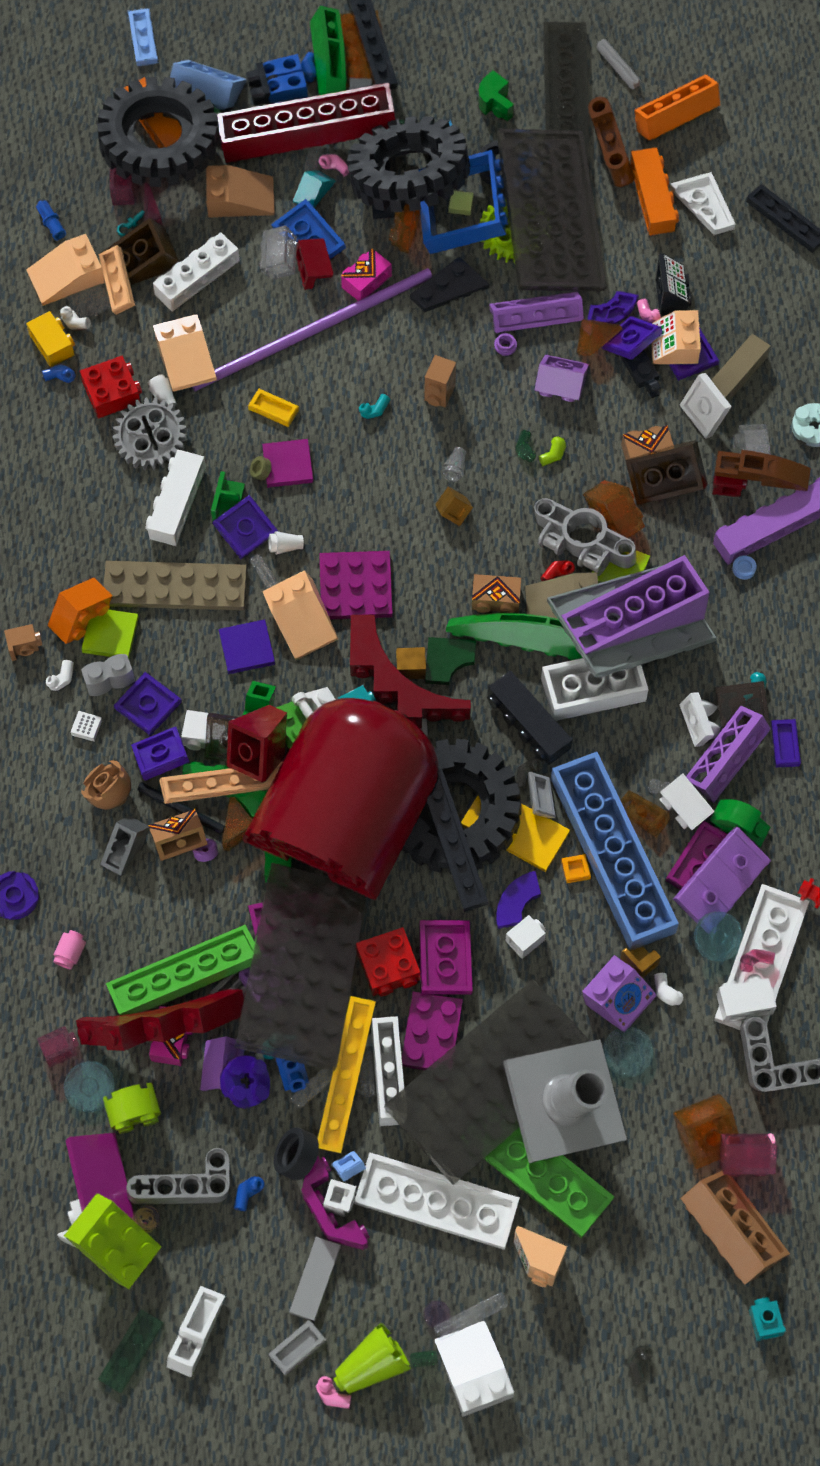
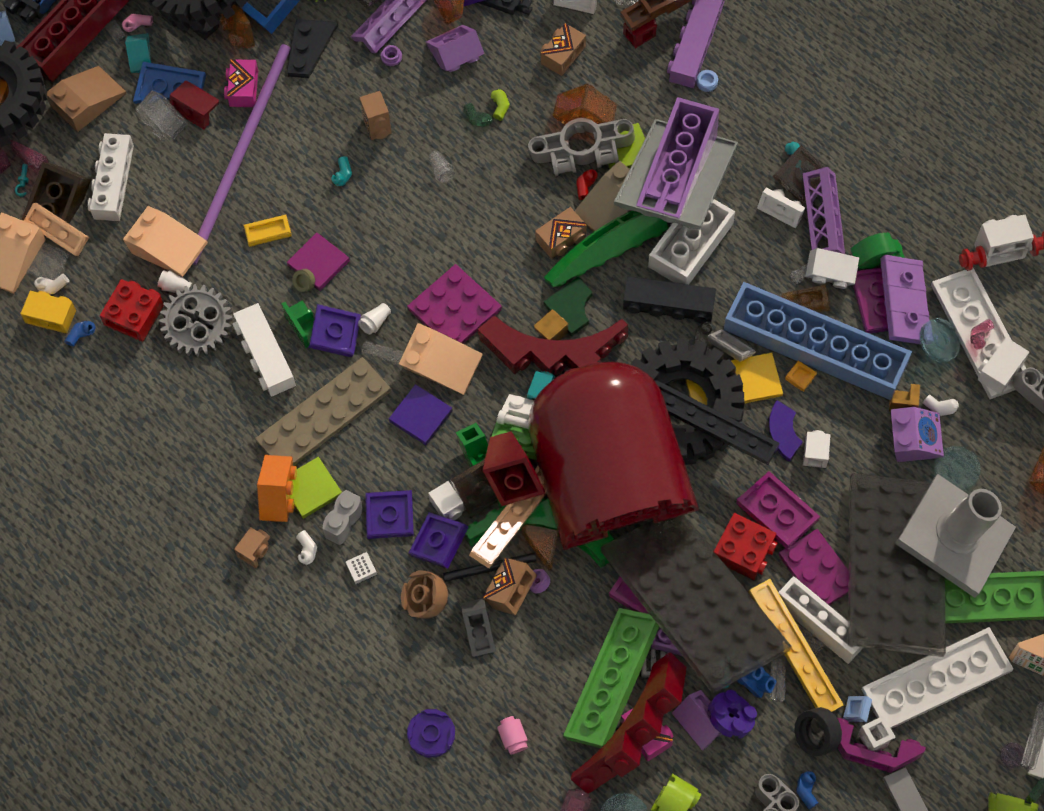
camera: 40 degrees left, 0 degrees up
(454, 506) = (470, 196): pearl gold panel -> none
(667, 472) = (597, 54): dark brown slope -> none
(785, 743) = (852, 176): dark purple tile -> none

